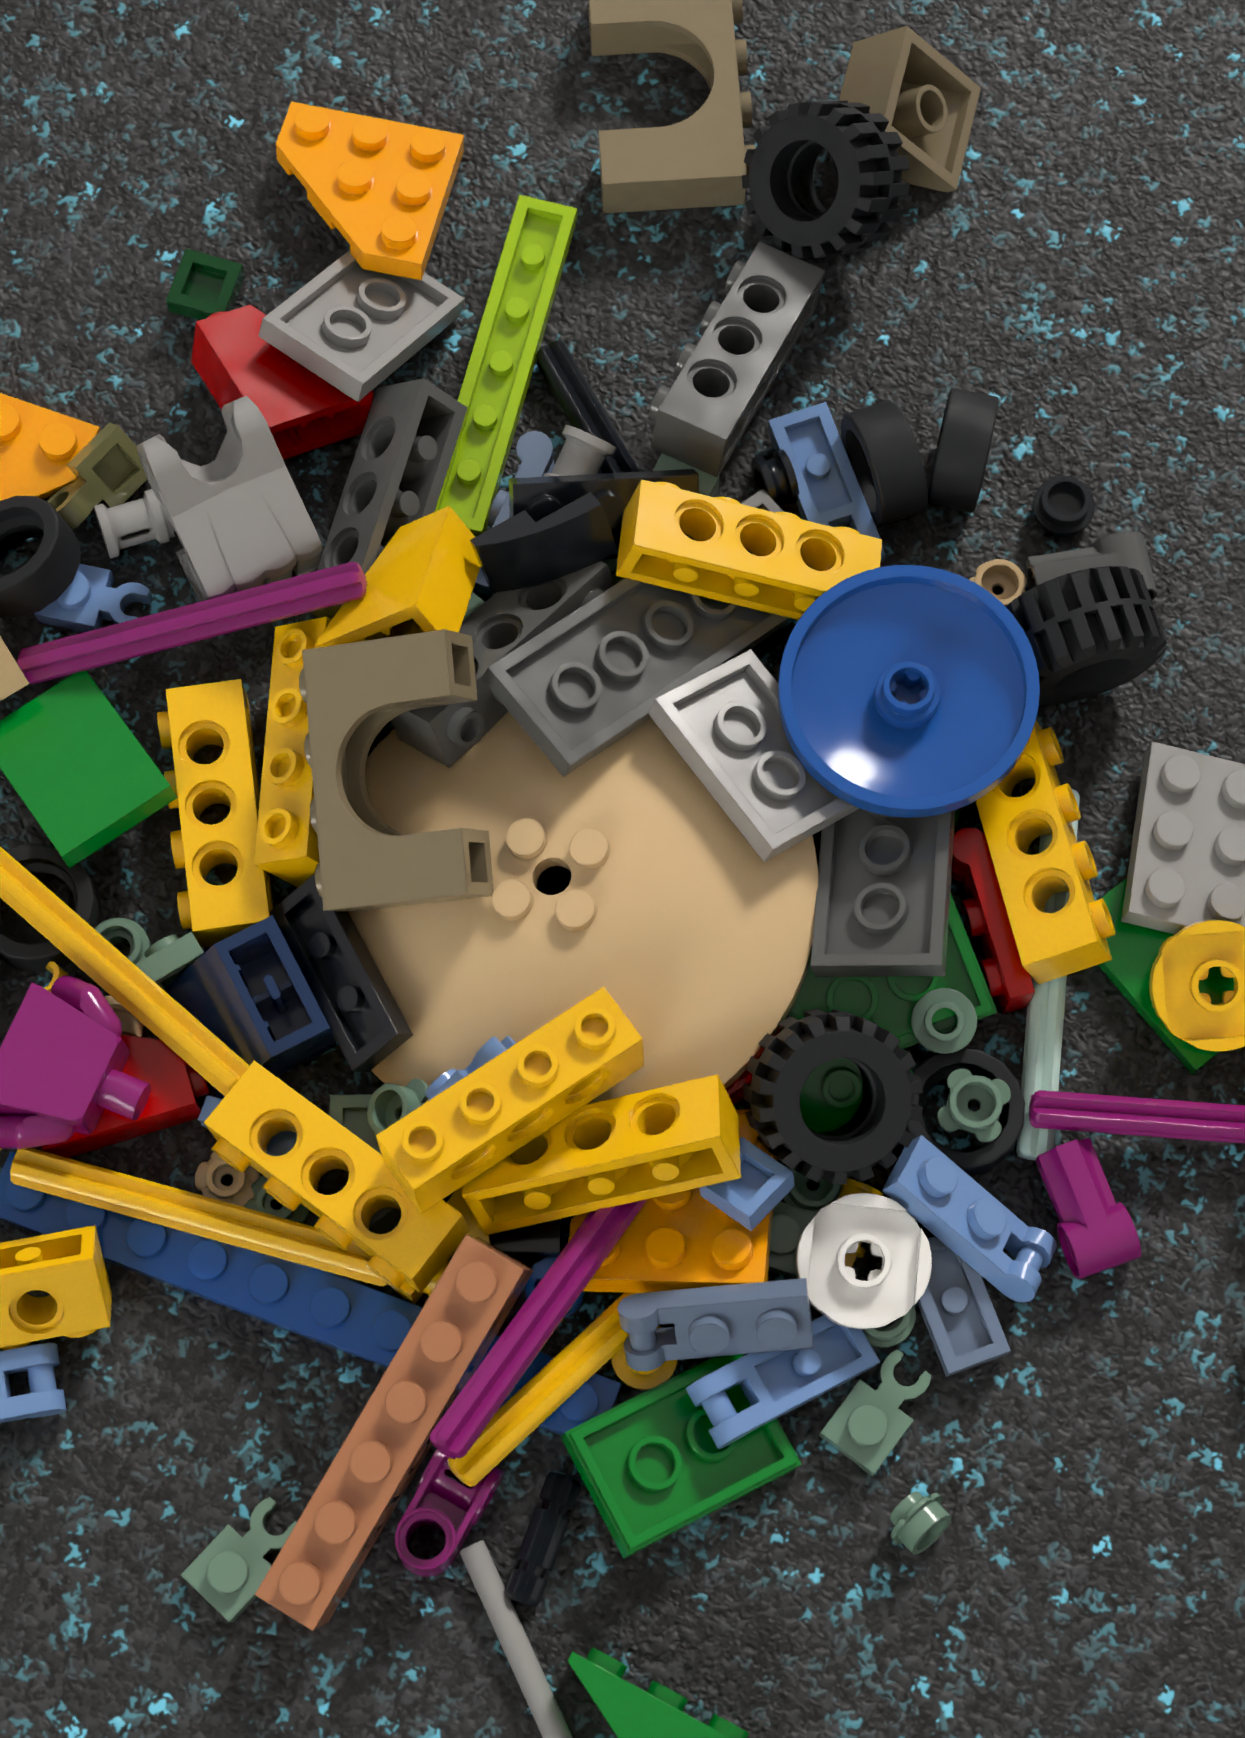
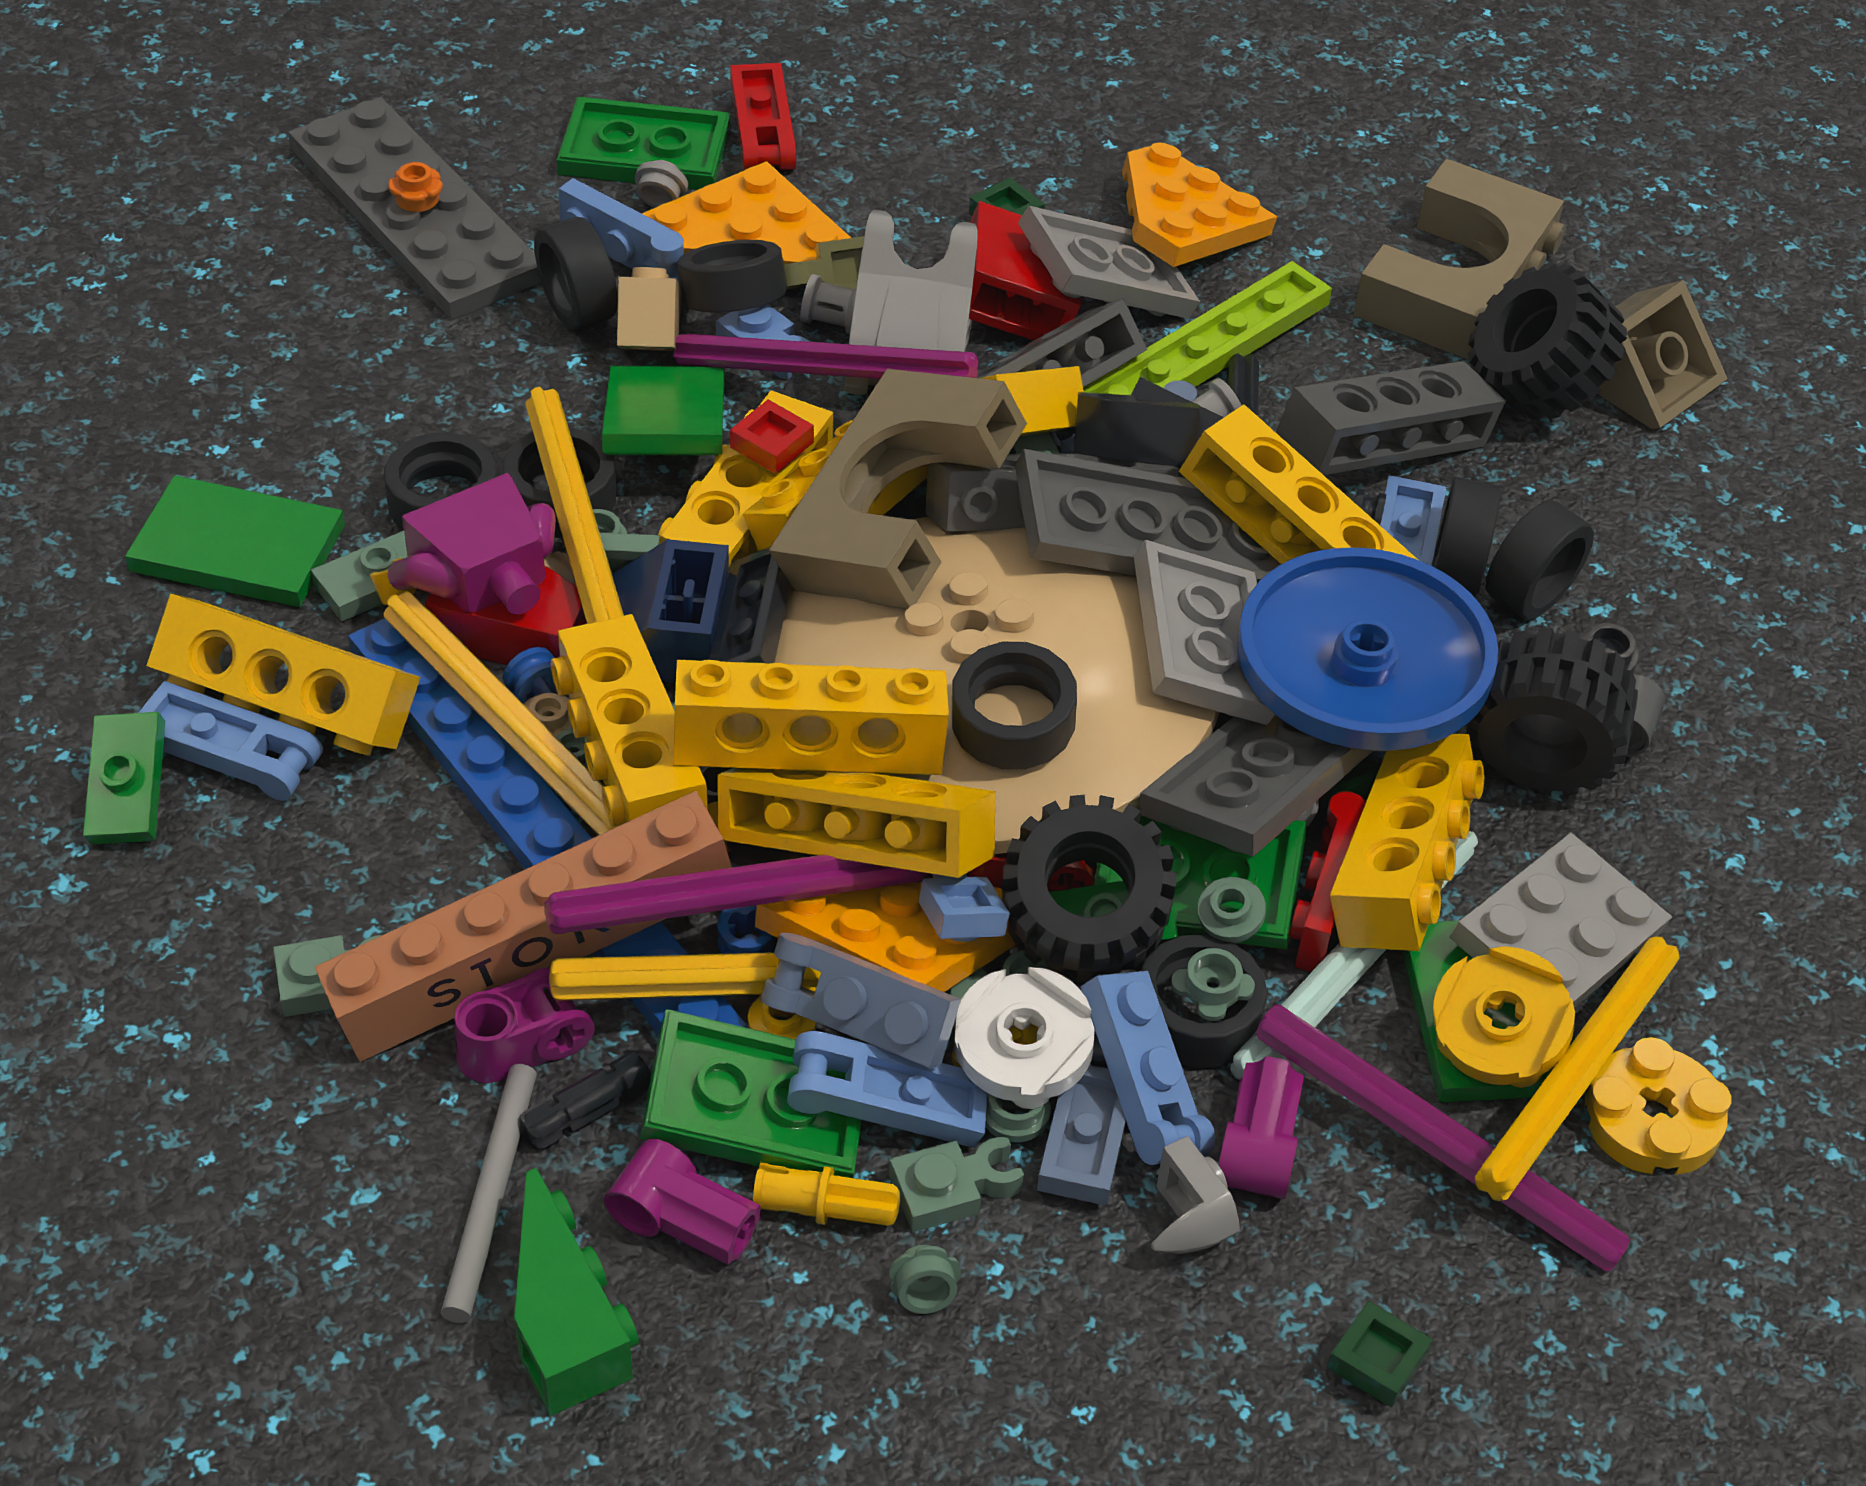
camera: 30 degrees right, 25 degrees down
(185, 1148) = (530, 674): none -> blue bush
(218, 759) = (771, 436): none -> red plate
(675, 1588) = (667, 1195): none -> magenta piece
(678, 914) = (1014, 744): none -> black tyre
(794, 1499) = (825, 1195): none -> yellow axle
(1074, 1301) = (1199, 1198): none -> light grey plate

